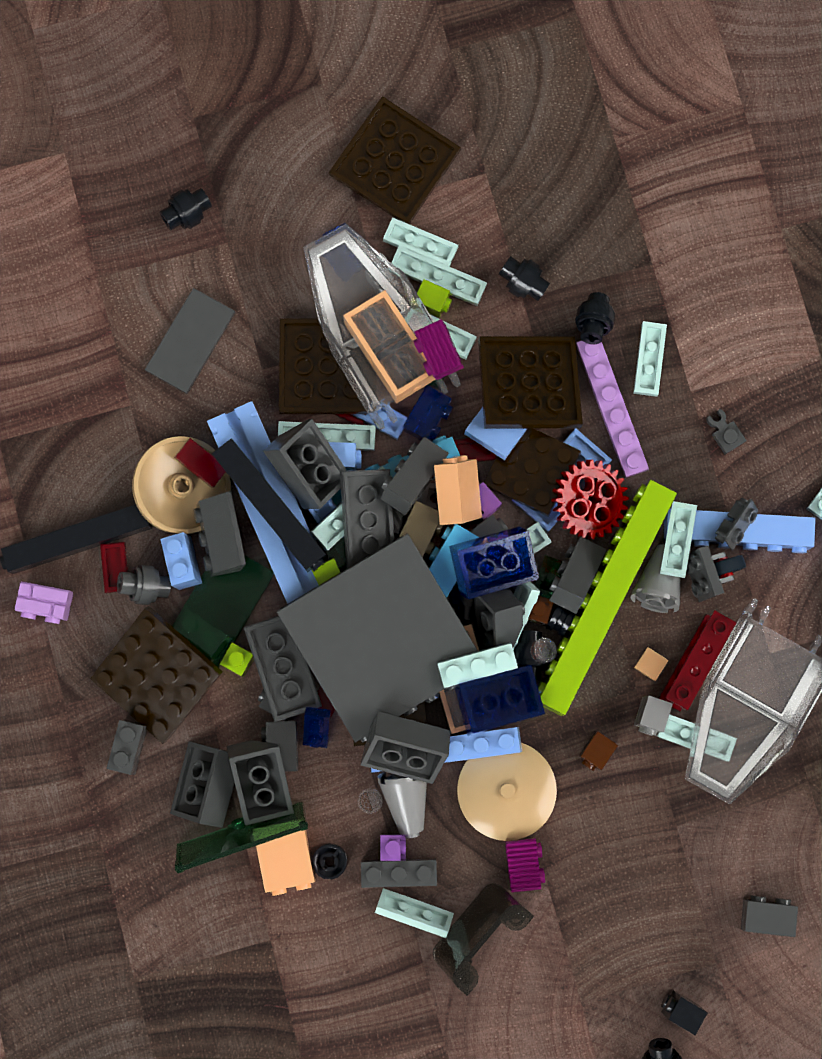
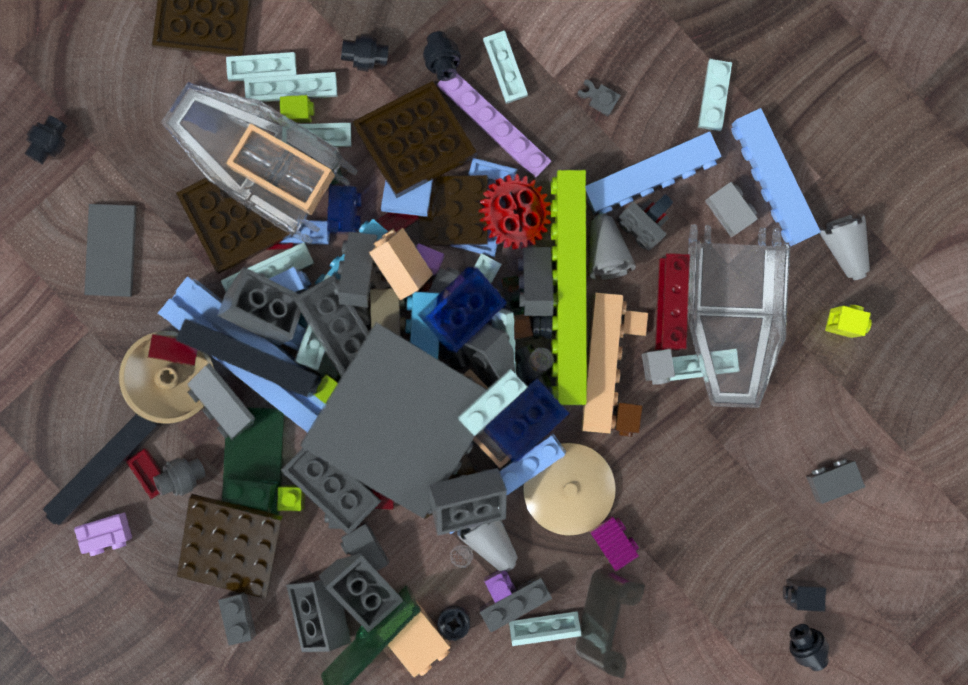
camera: 30 degrees left, 5 degrees up
(181, 561) = (200, 440): light blue brick -> none
(316, 727) = (385, 520): clear blue plate -> none
(438, 350) = (322, 152): magenta brick -> none
(600, 685) = (602, 362): none -> light nougat brick
(678, 539) = (606, 208): light aqua plate -> none
(744, 514) = (649, 159): dark grey hinge -> none
(799, 602) = (731, 209): none -> light grey brick

